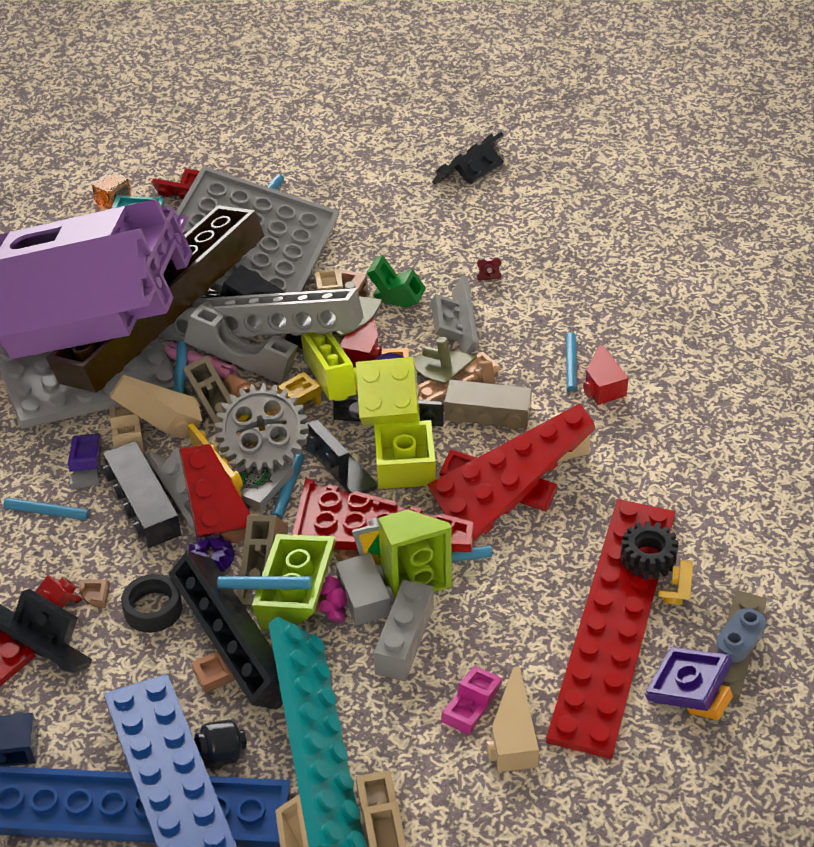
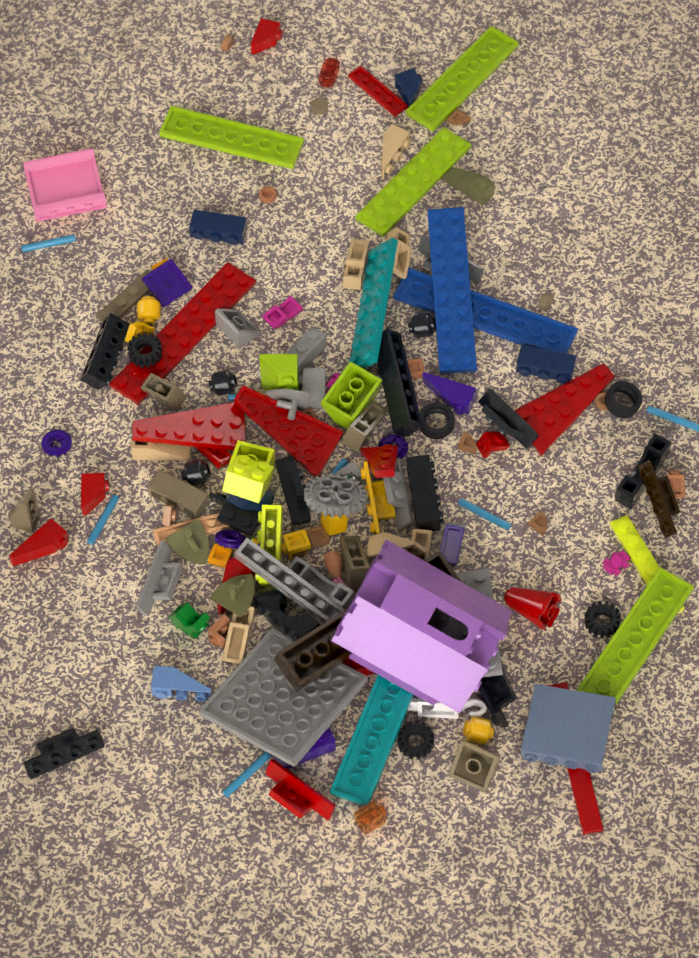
camera: 160 degrees left, 15 degrees up
(139, 647) = (454, 394): none -> dark purple slope
(264, 582) = (371, 386): dark azure bar -> none
(377, 234) = (169, 679): none -> medium blue slope
(479, 434) = (196, 472): none -> black head
(489, 262) = (113, 620): dark red plate -> none
(507, 556) = (223, 382): none -> black head
(513, 732) = (271, 286): tan slope -> none
(534, 644) = (236, 326): none -> light grey slope
(584, 510) = (164, 392): none -> dark tan slope
(625, 311) = (43, 542): none -> red slope
(666, 808) = (218, 227): none -> dark blue brick
(667, 316) = (26, 512): none -> dark tan slope
(686, 414) = (56, 435): none -> dark purple gear
(689, 626) = (148, 310): none -> yellow head
(709, 541) = (105, 351): none -> black brick
(745, 630) = (127, 291): sand blue plate -> none

